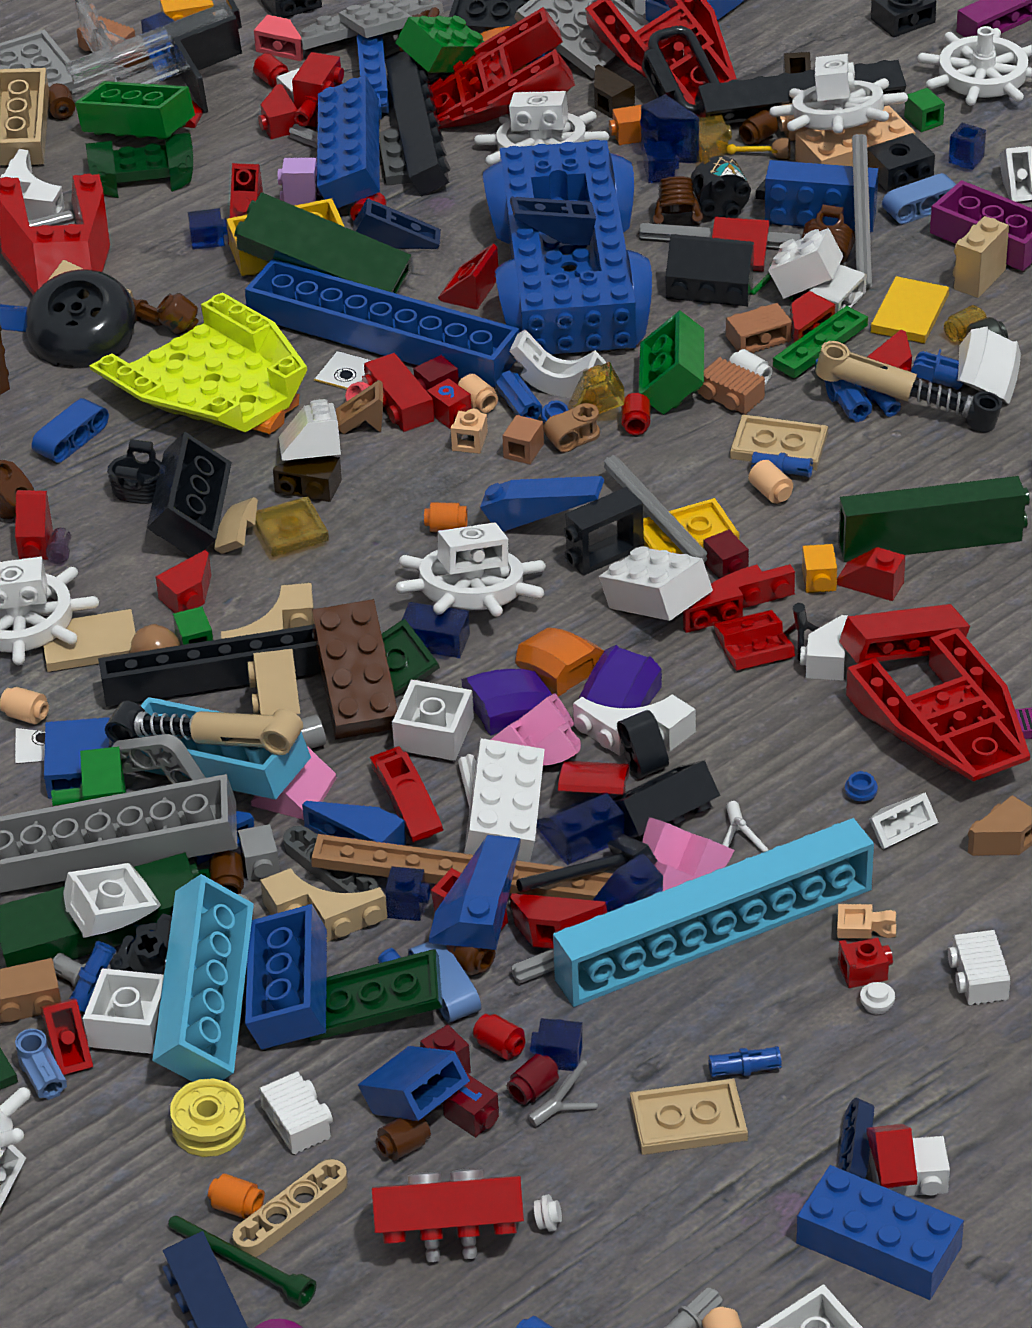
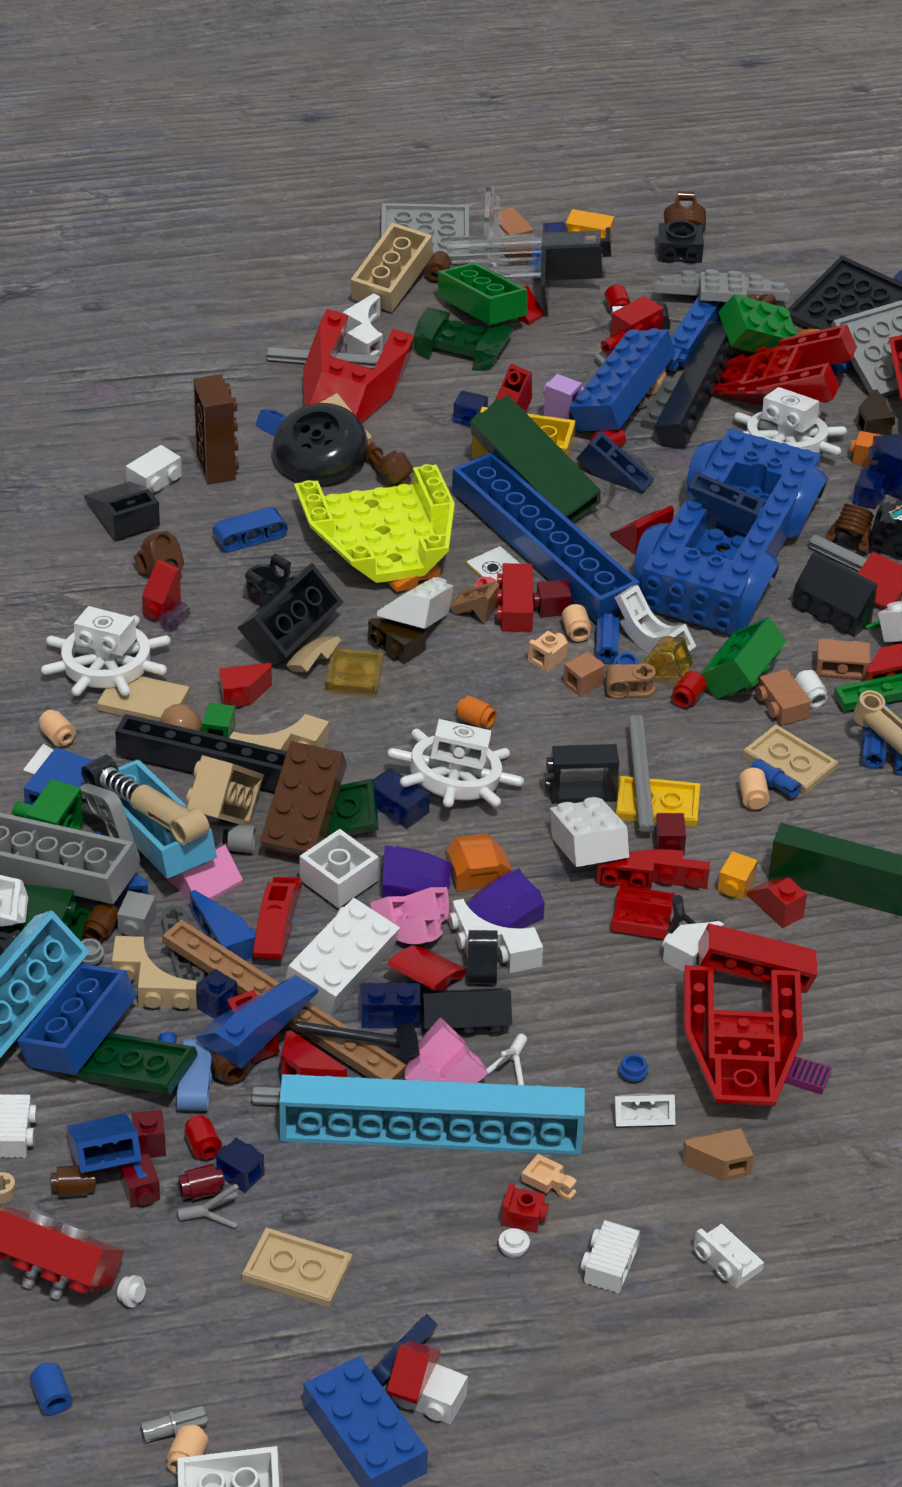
camera: 25 degrees right, 0 degrees up
(277, 113) = (593, 334): red slope -> none
(278, 38) = (641, 275): coral slope -> none
(448, 400) = (548, 618): red brick -> none
(529, 500) = (542, 724): blue wedge -> none
(631, 883) = (378, 1063): clear blue slope -> none
(744, 1062) = (370, 1245): blue pin -> none

